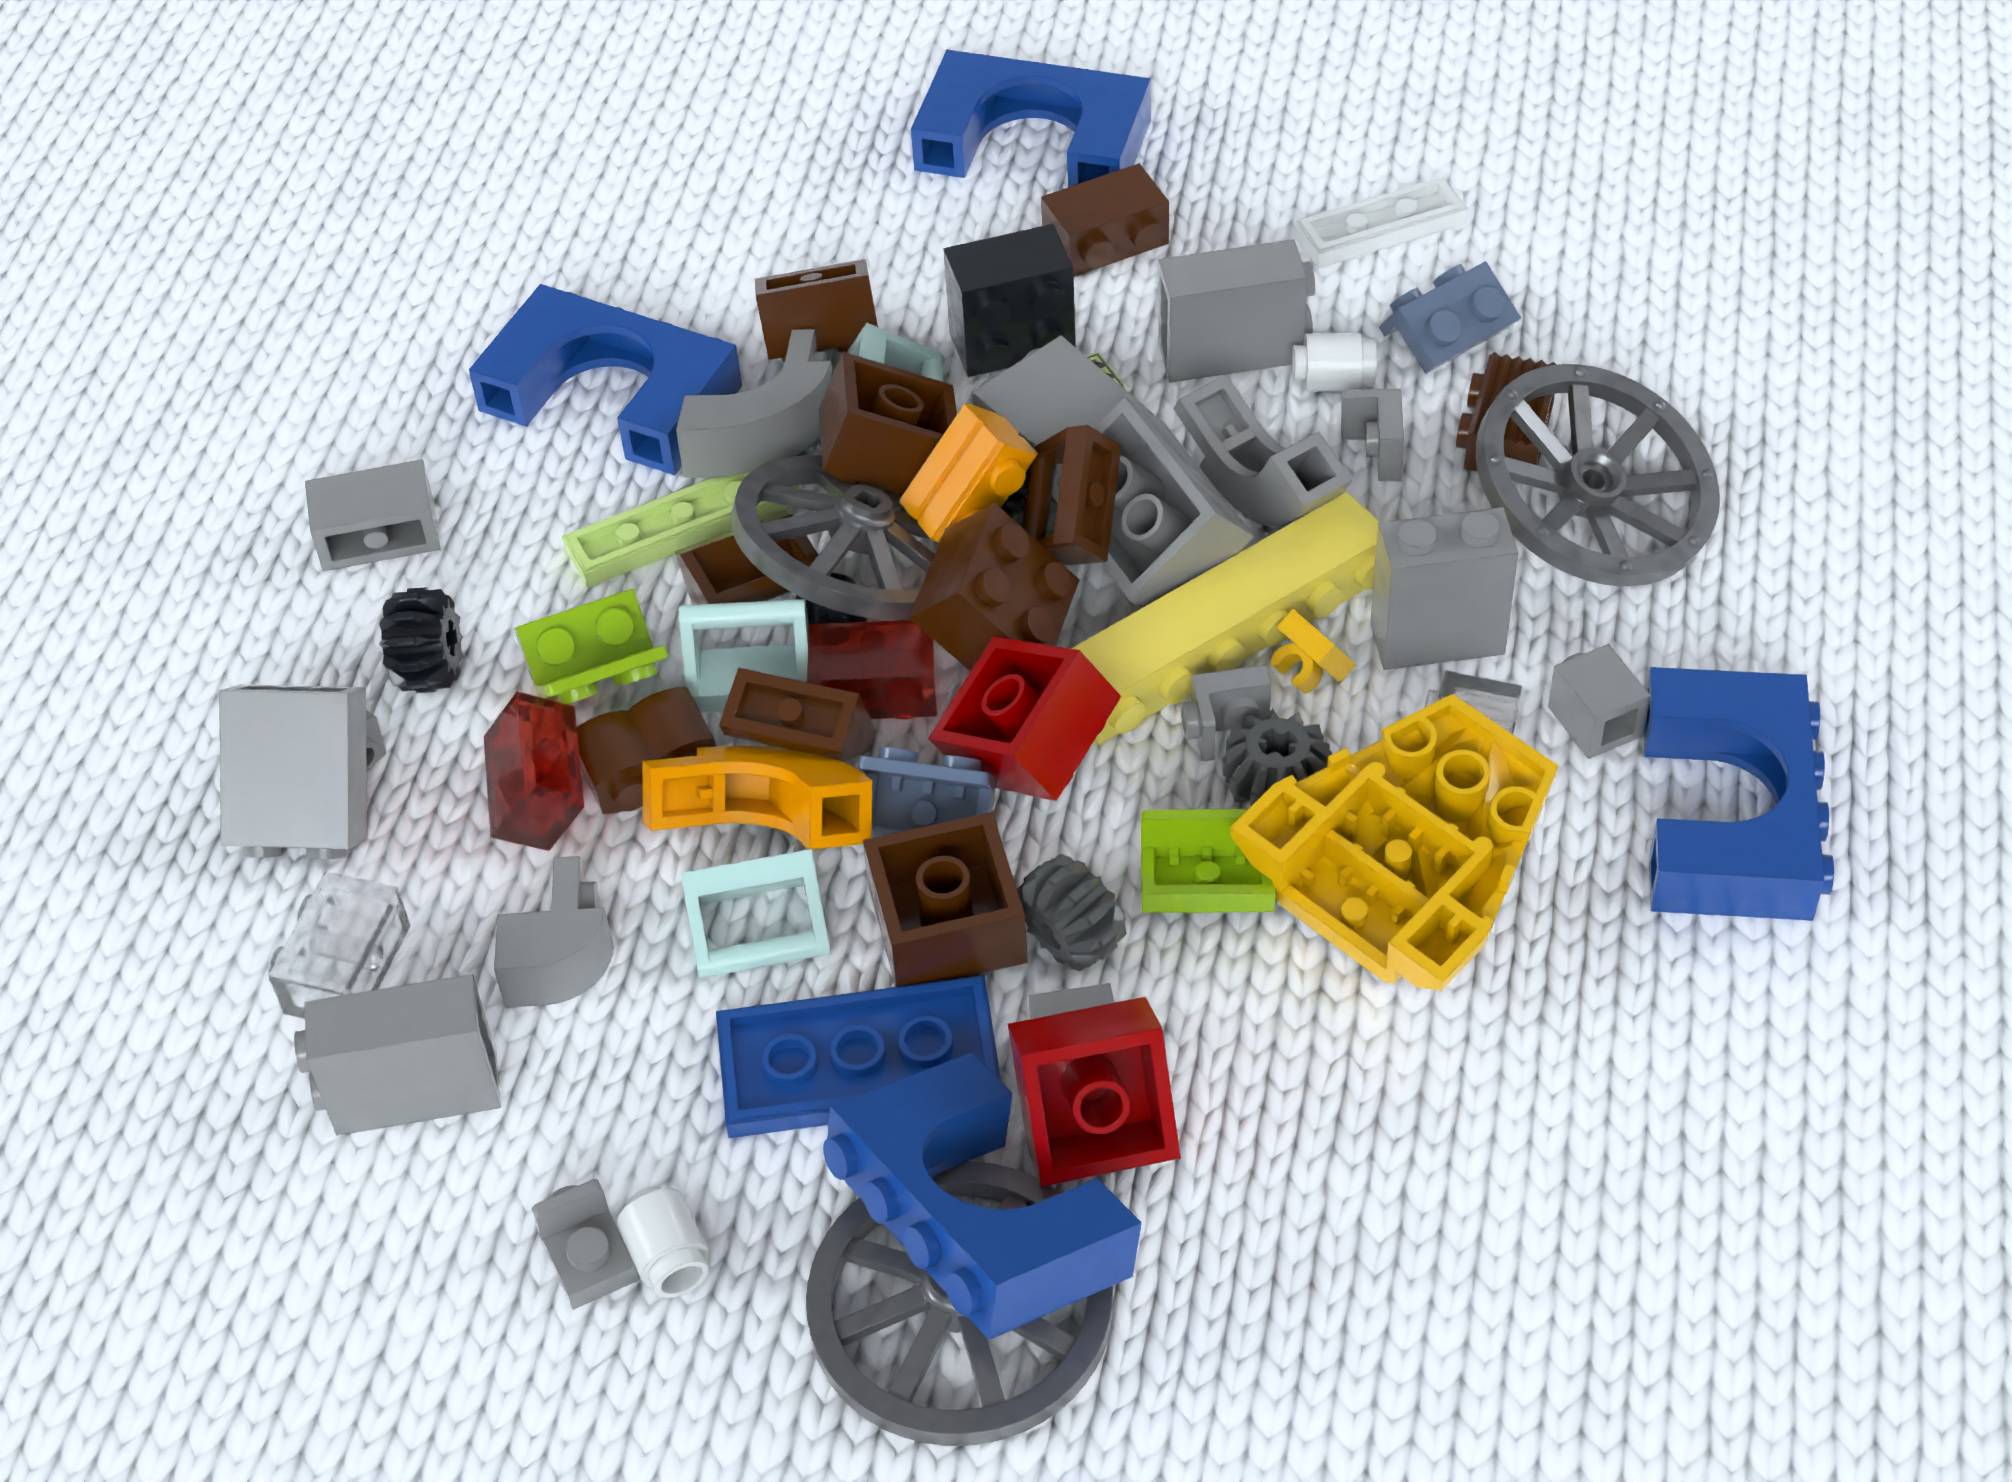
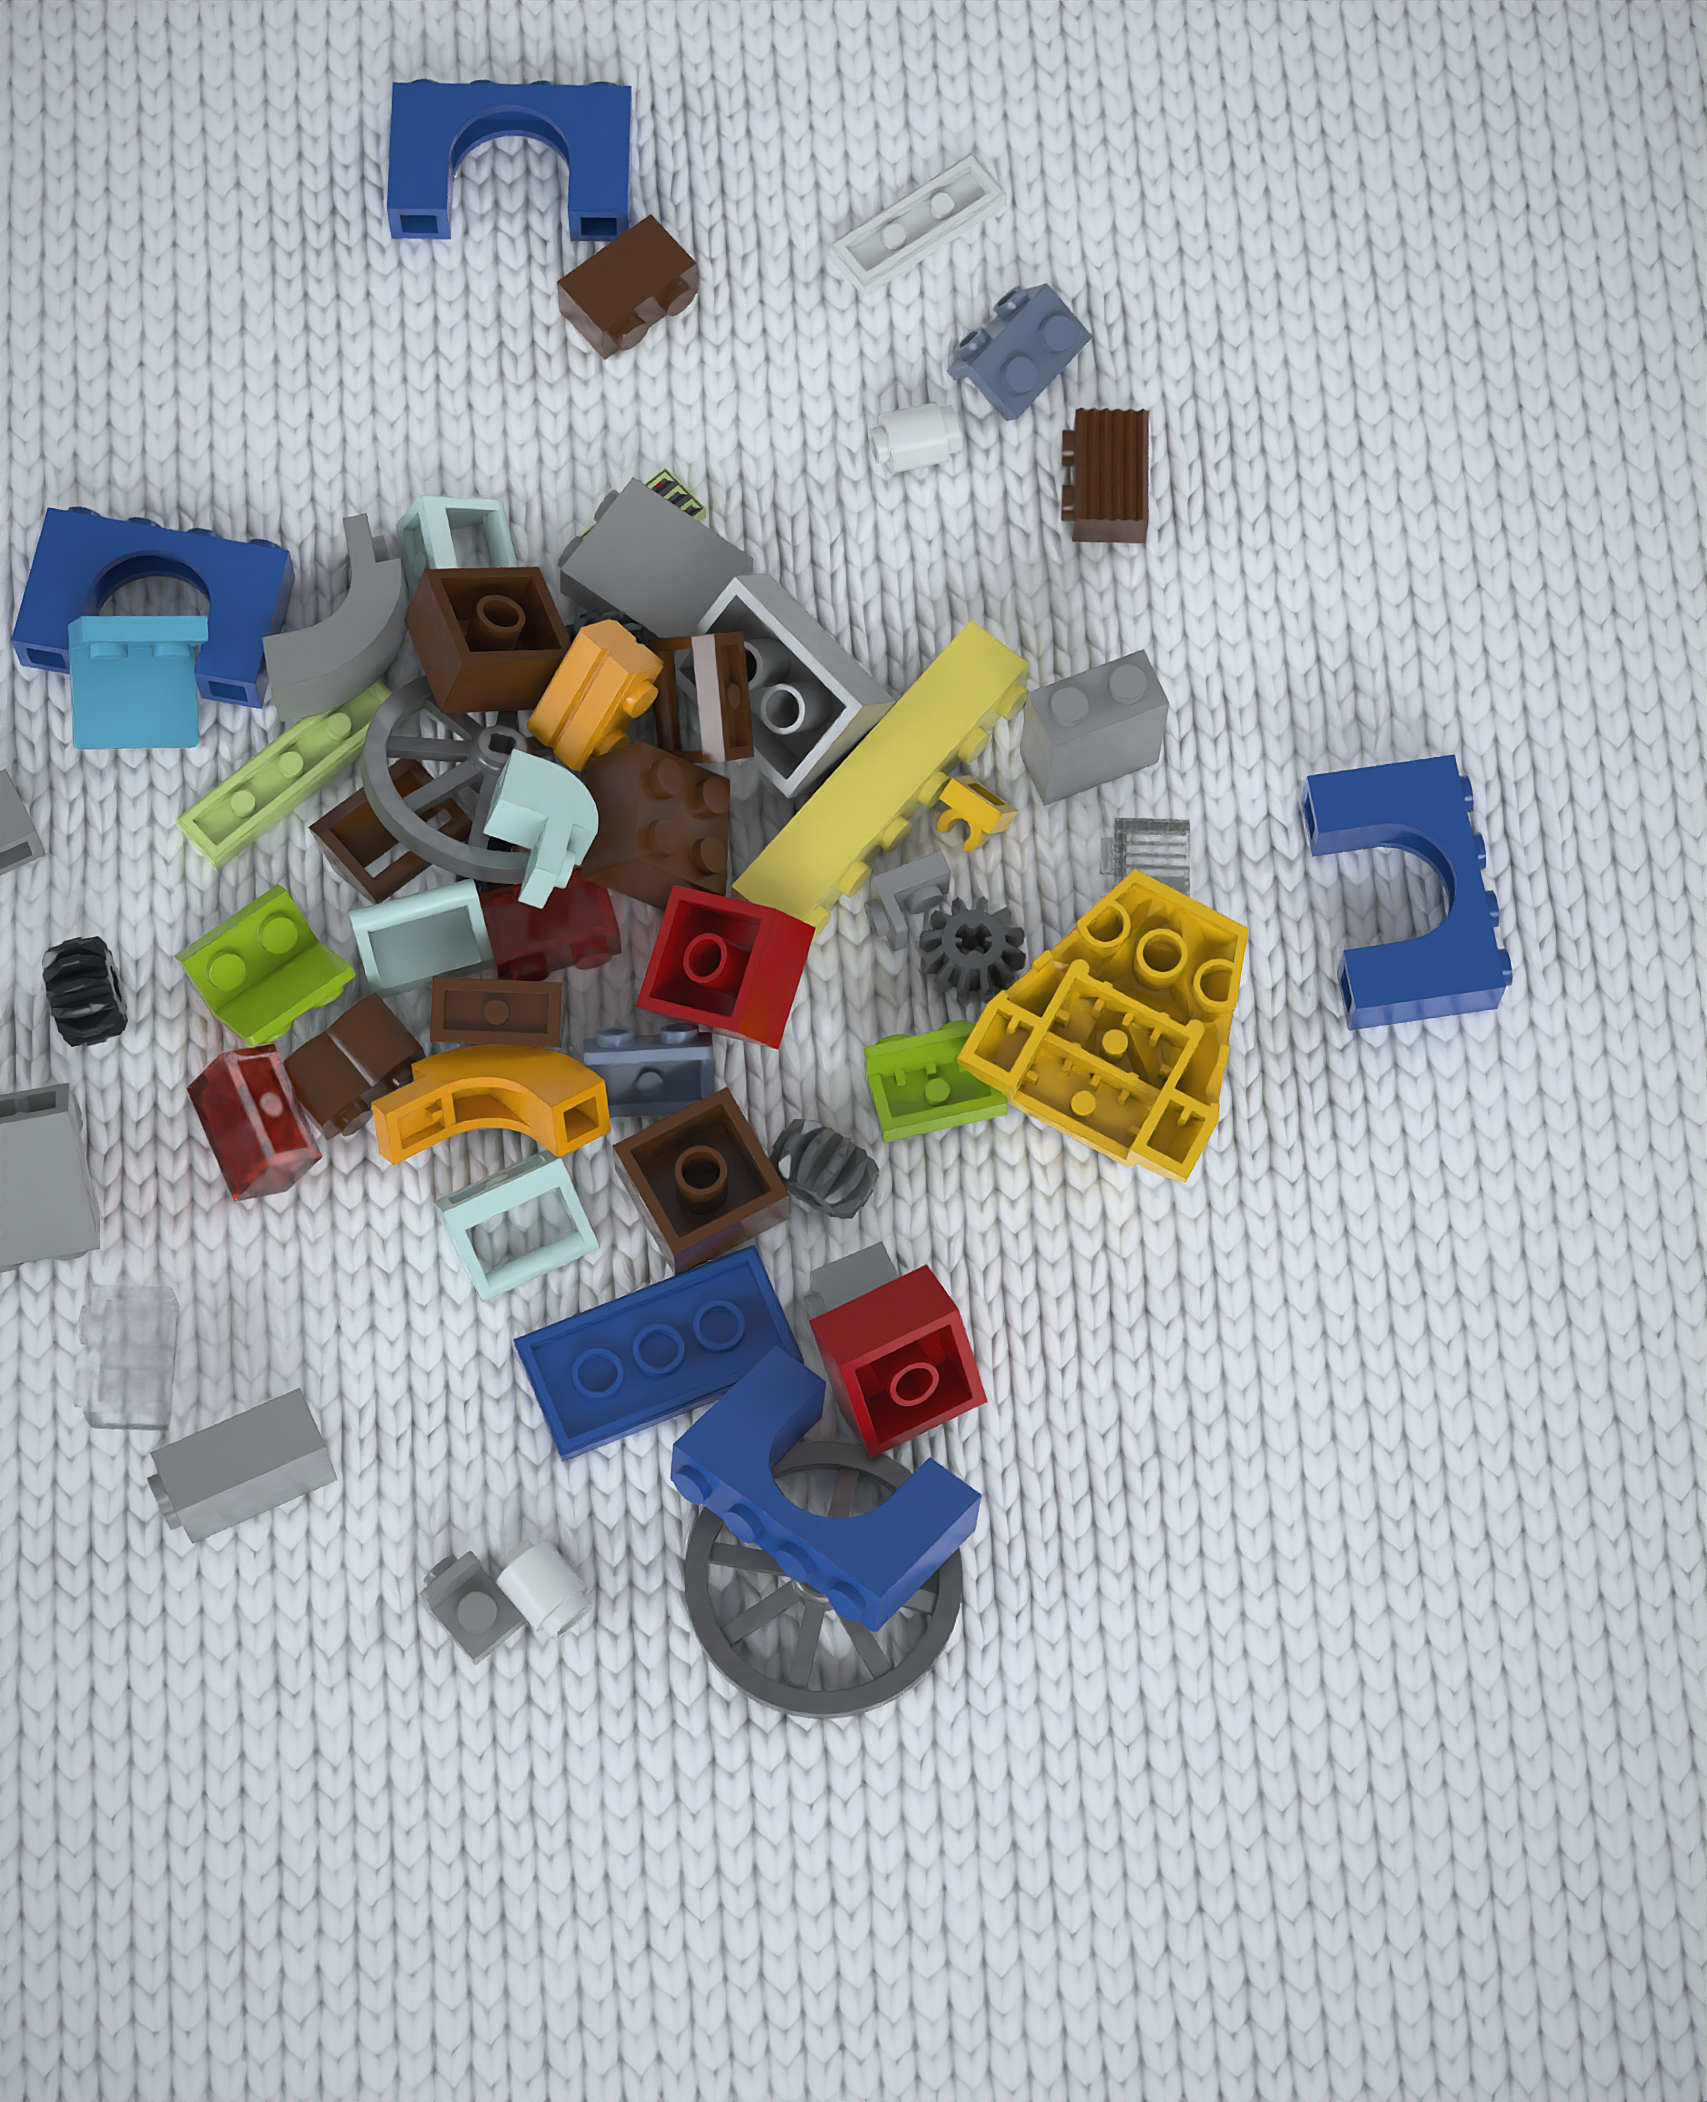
camera: 20 degrees left, 20 degrees up
(557, 951) = (342, 1314): light grey brick -> none
(564, 413) = (134, 681): none -> medium azure bracket
(826, 298) = (357, 474): reddish brown brick -> none
(884, 550) = (546, 812): none -> light aqua brick
(1008, 297) = (564, 434): black brick -> none
(1233, 309) = (801, 402): light grey brick -> none
(1250, 467) = (885, 610): light grey arch -> none
(1379, 420) = (983, 508): light grey bracket -> none
(1593, 479) = (1218, 538): flat silver wheel -> none
(1598, 700) = (1260, 811): light grey brick -> none

